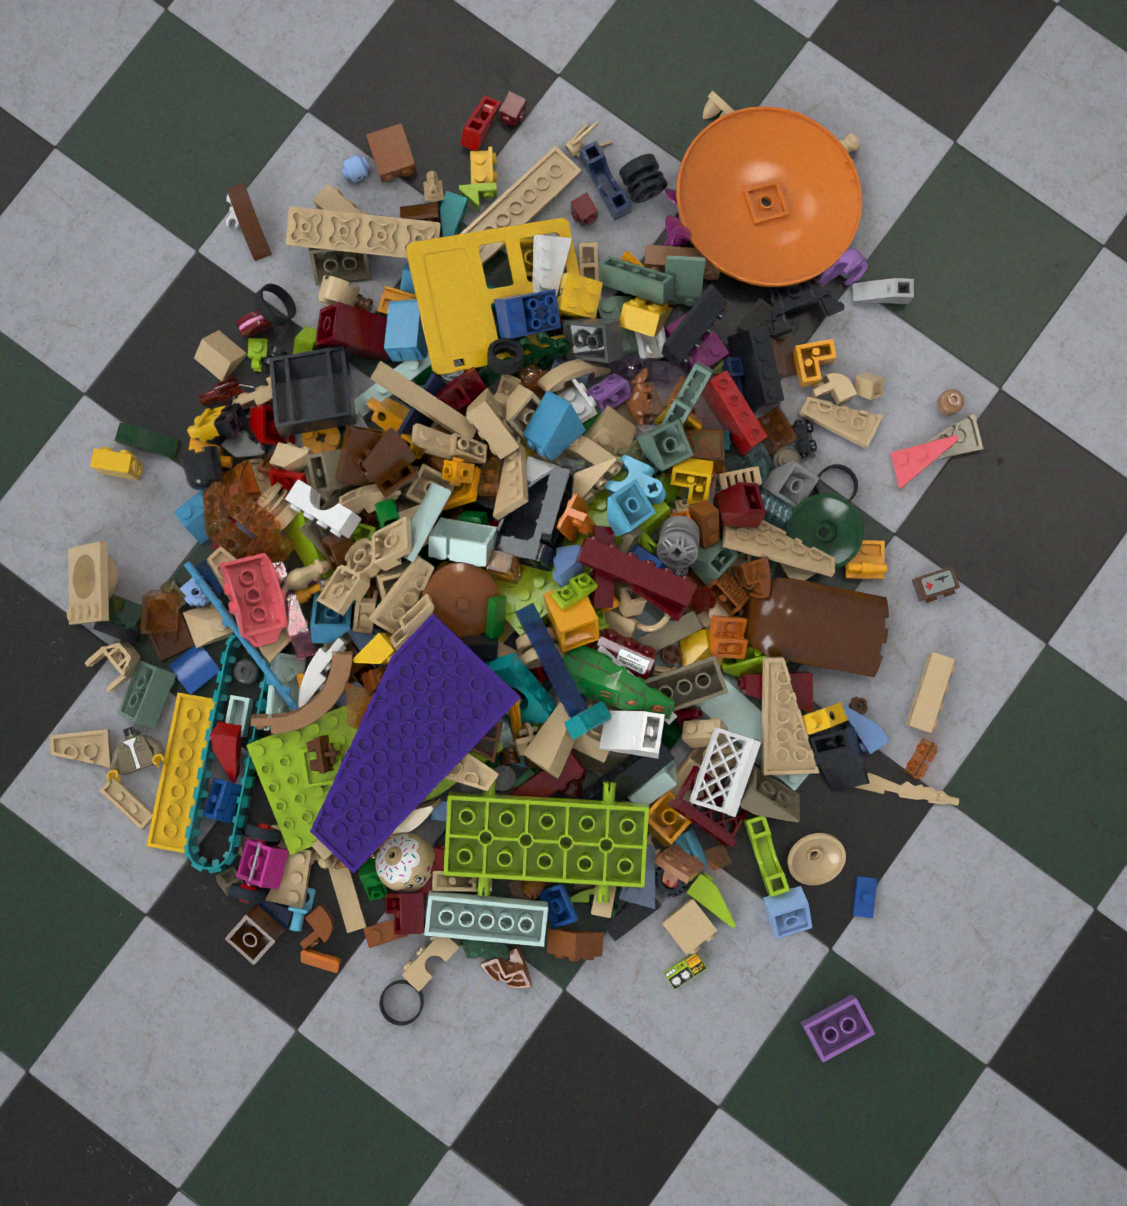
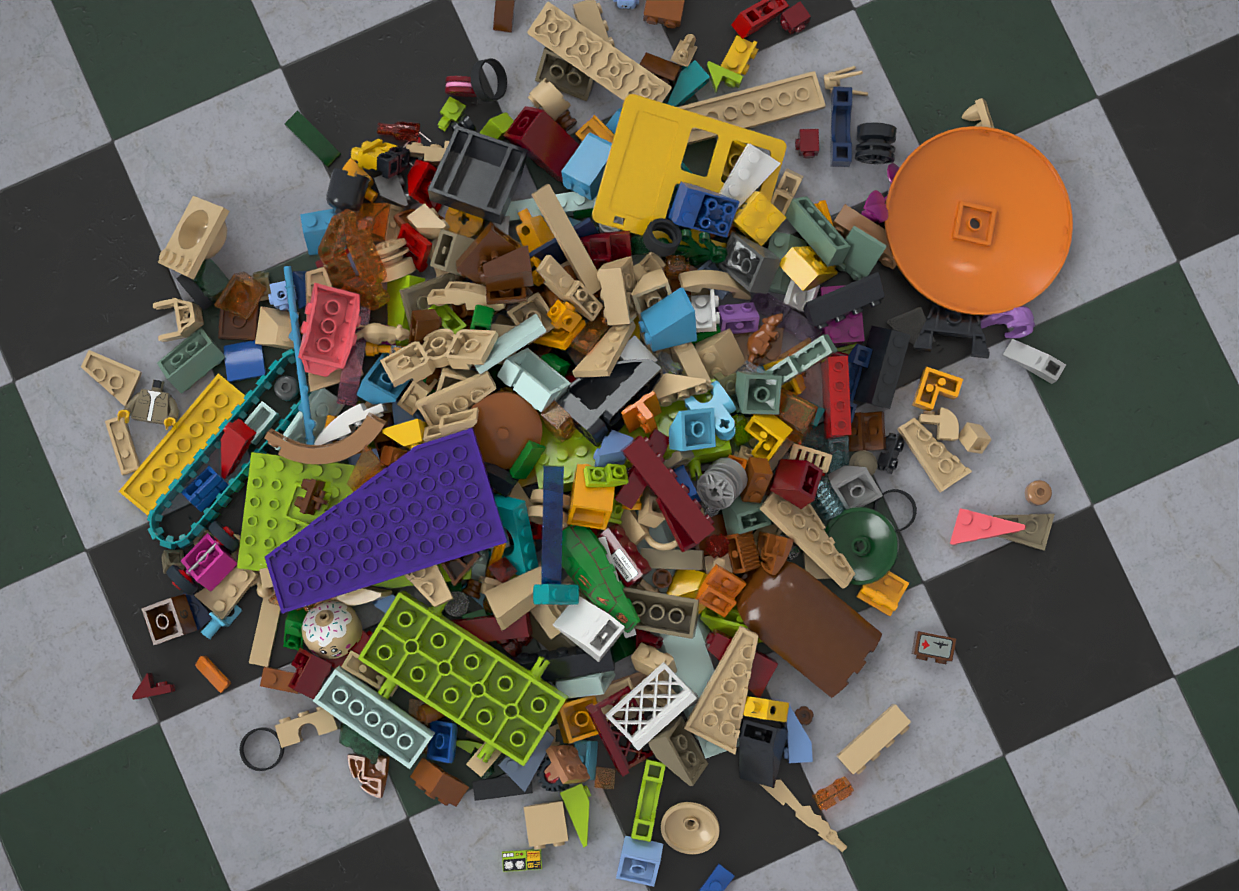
camera: 30 degrees right, 0 degrees up
(116, 464) = (274, 145): yellow brick -> none
(219, 355) = (416, 97): tan slope -> none
(270, 1006) = (148, 689): none -> dark red slope
(323, 924) = (232, 644): dark orange brick -> none
(338, 518) = (437, 299): white arch -> none
(527, 725) = (502, 569): none -> clear red slope
(783, 357) = (911, 370): reddish brown panel -> none
(850, 143) = (1080, 212): tan wheel -> none

